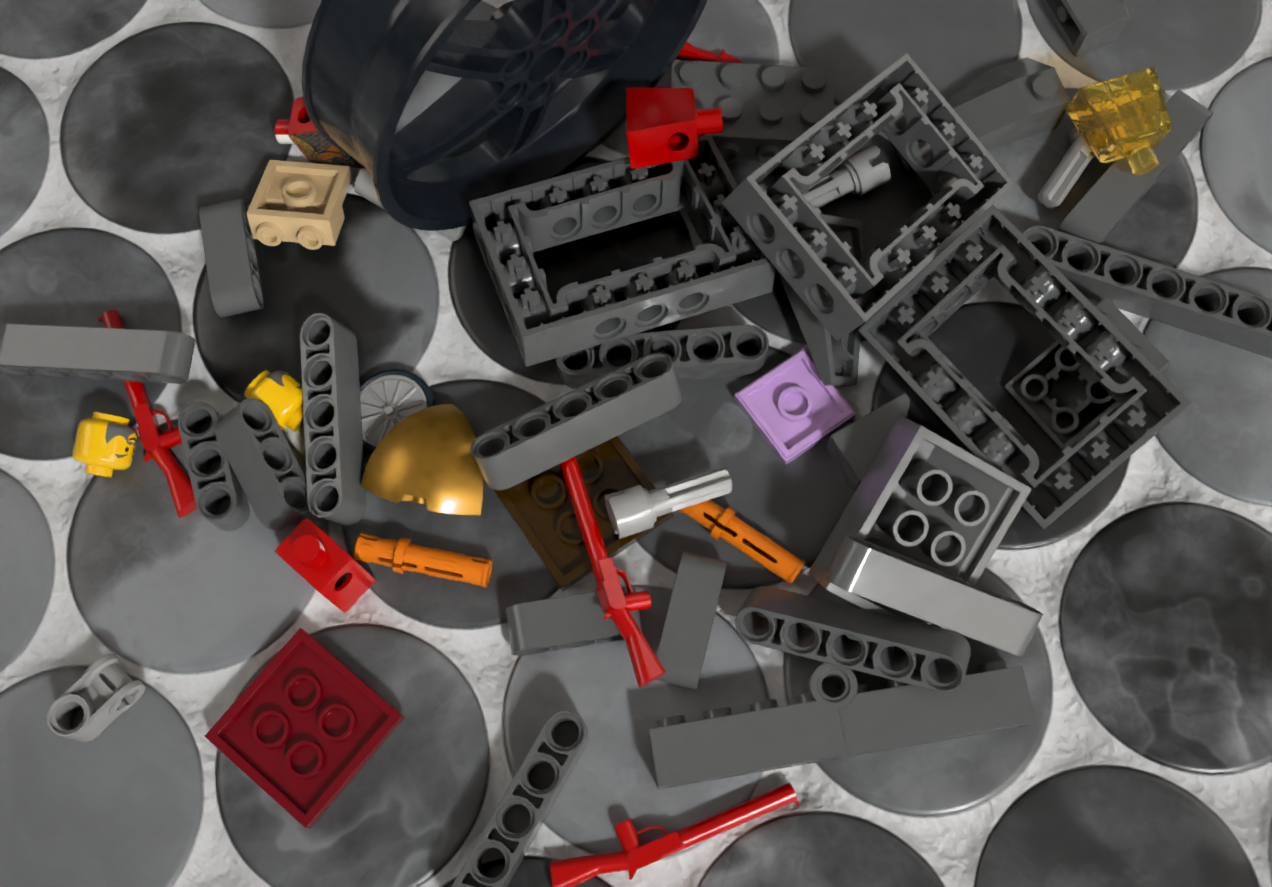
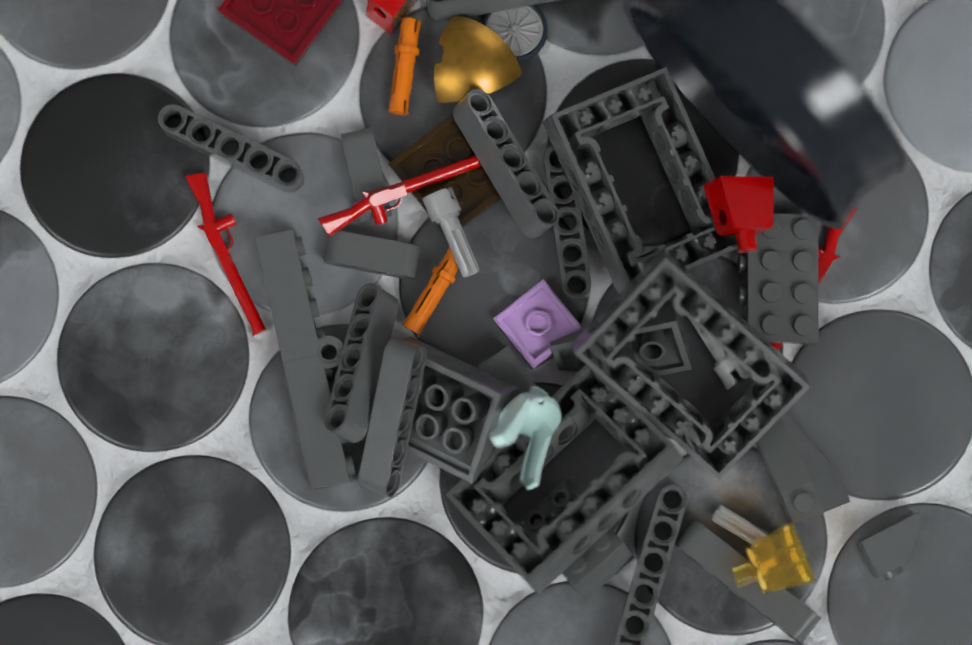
camera: 85 degrees right, 10 degrees up
(949, 396) = (533, 416): none -> light aqua piece

